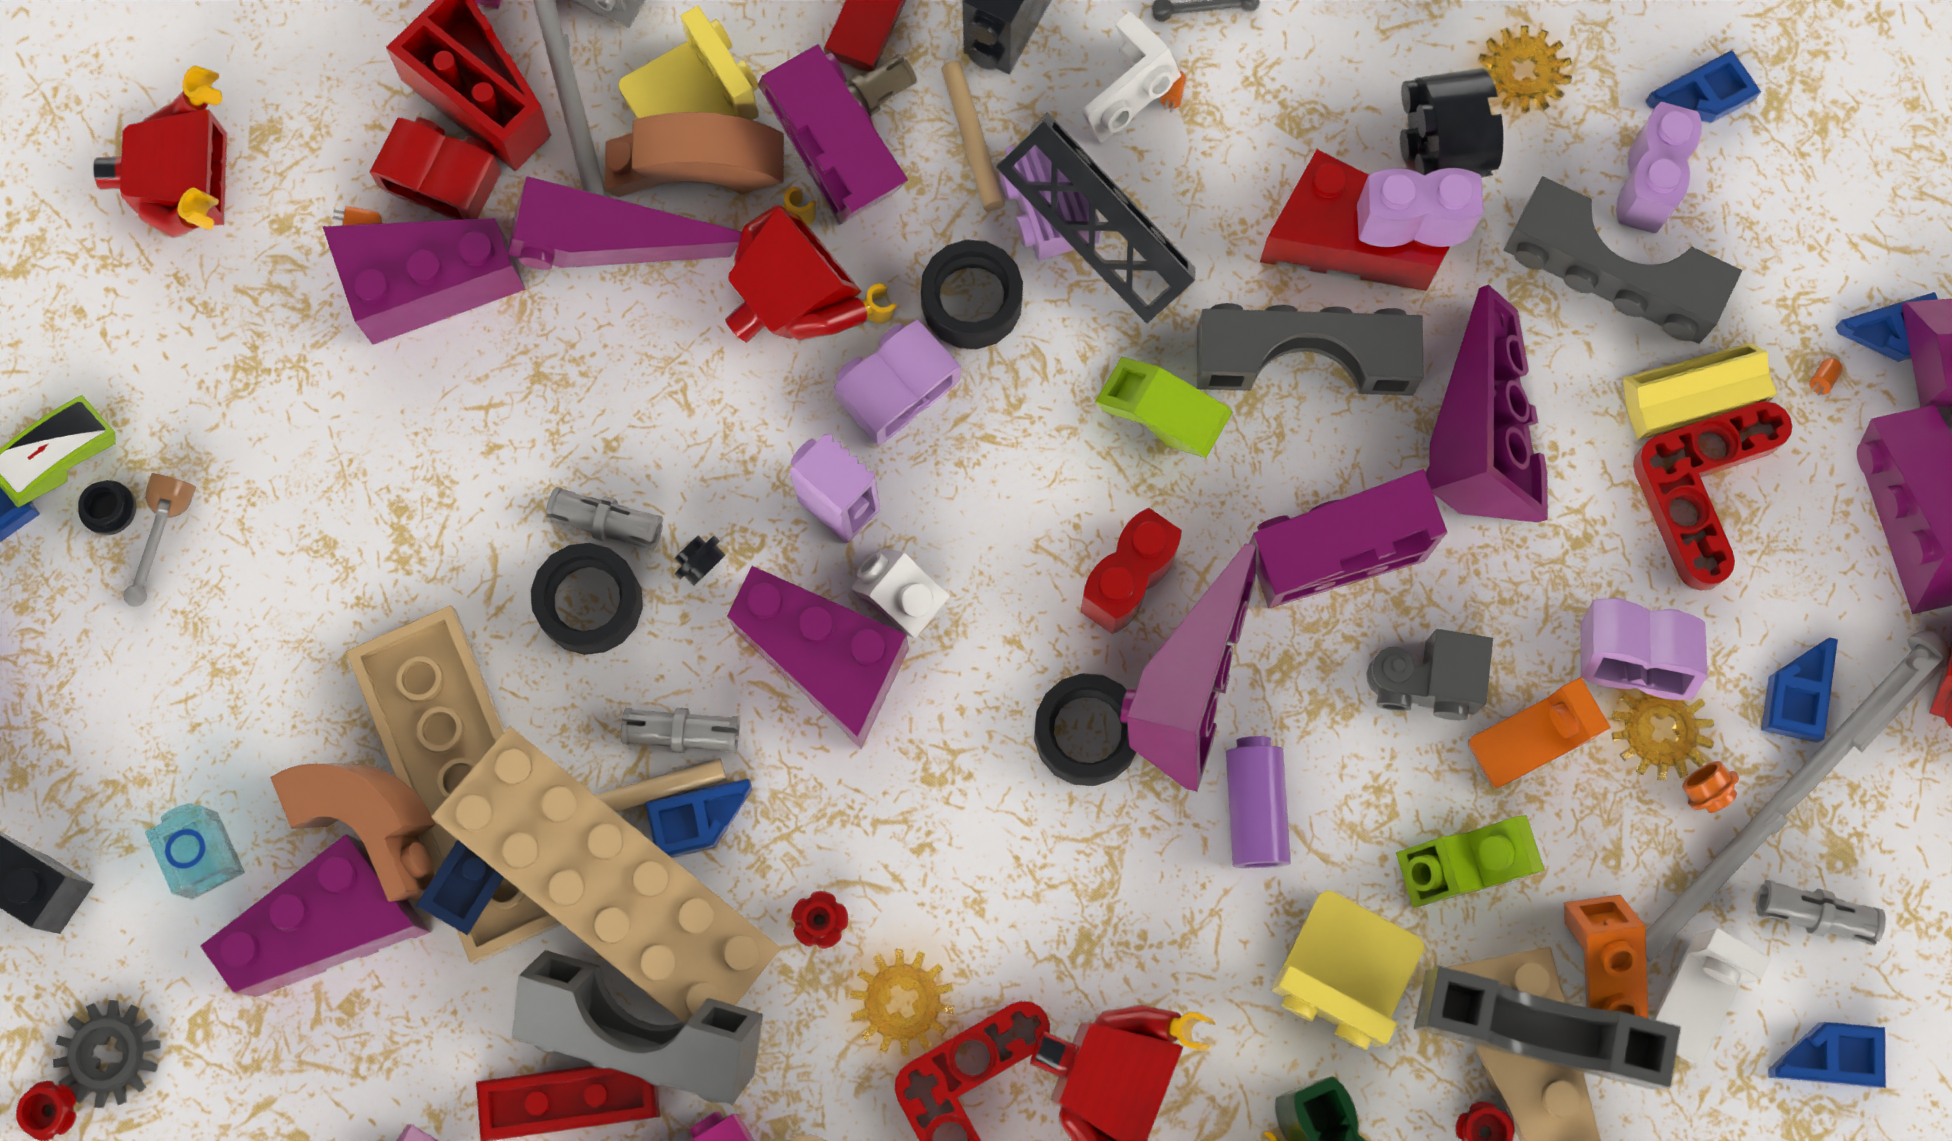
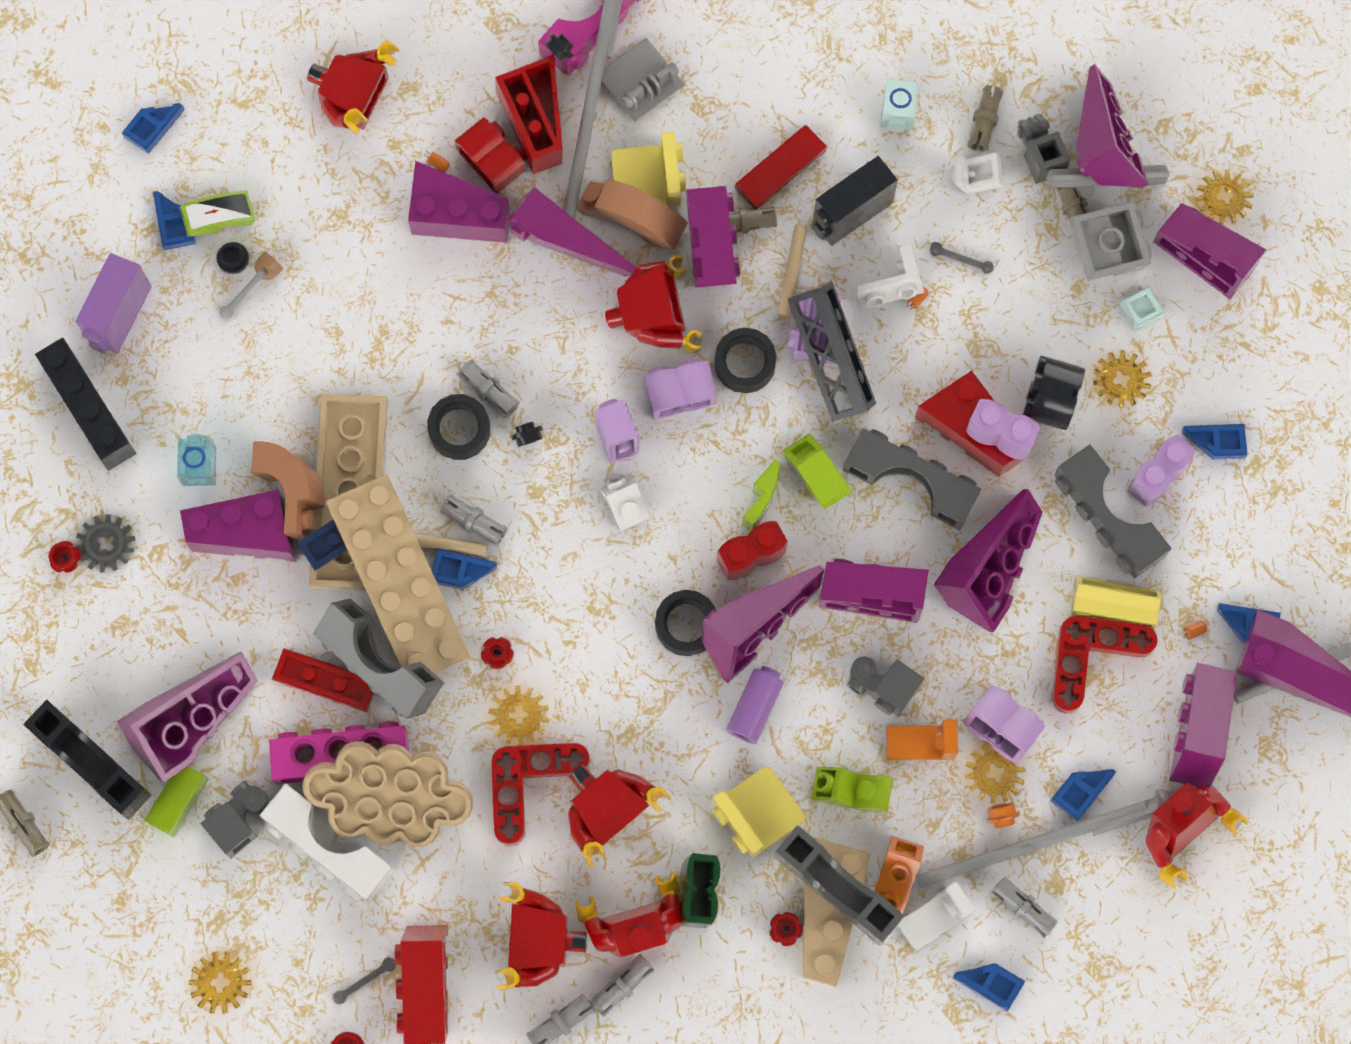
camera: 25 degrees right, 0 degrees up
(821, 648) = (569, 513): magenta wedge -> none
(1103, 472) = (765, 489): none -> lime slope

